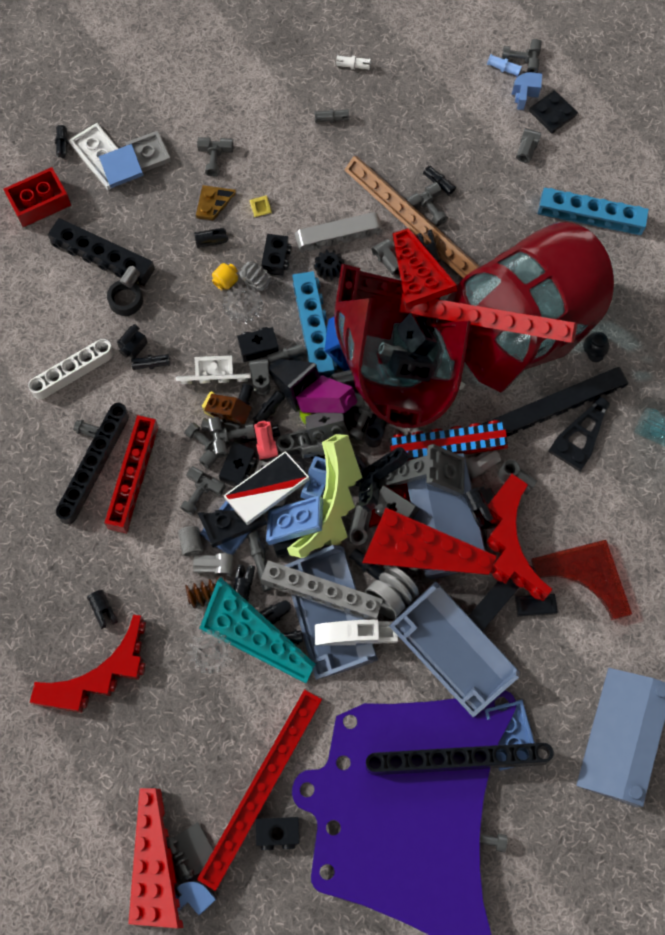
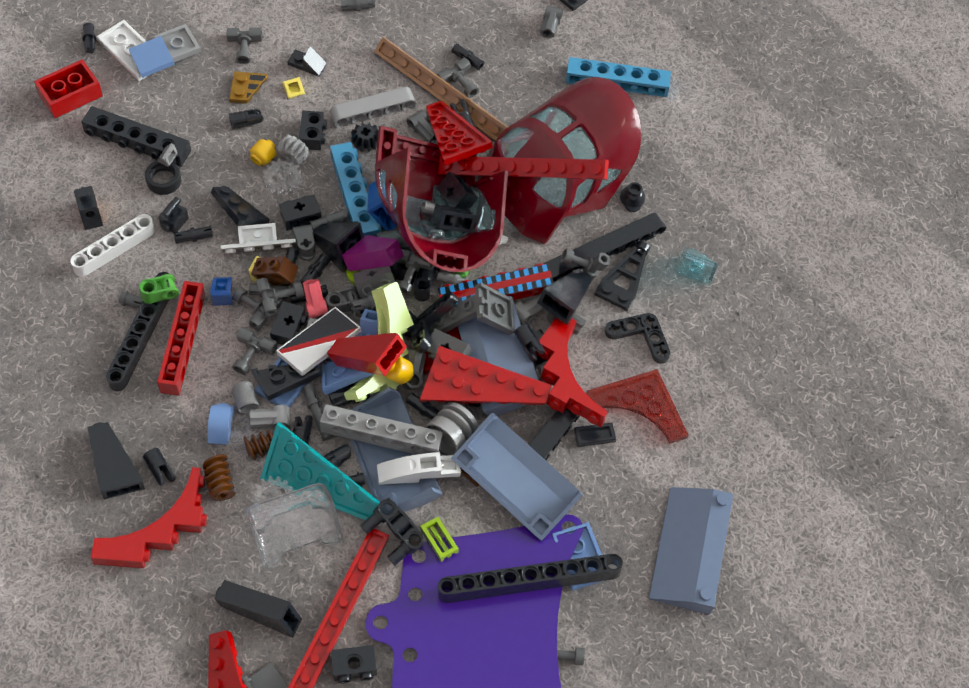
camera: 10 degrees left, 10 degrees down
(48, 323) = (87, 202): none -> black torso
(57, 605) = (113, 465): none -> black slope
(113, 422) = (159, 289): none -> bright green piece
(157, 625) = (218, 478): none -> reddish brown piece
(164, 568) = (220, 423): none -> medium blue brick
(174, 424) = (221, 291): none -> blue slope
(188, 766) = (259, 607): none -> black slope
(196, 336) = (238, 208): none -> black wing
(227, 680) = (293, 522): none -> clear windscreen
(276, 178) = (307, 62): none -> slope
(313, 510) = (368, 353): none -> red slope
(333, 692) = (400, 526): none -> black piece
(343, 527) = (401, 371): none -> yellow head
(378, 721) = (447, 553): none -> lime tile
(519, 456) = (565, 295): none -> black slope
(545, 424) = (590, 266): none -> dark grey bar
(593, 491) = (641, 327): none -> black beam

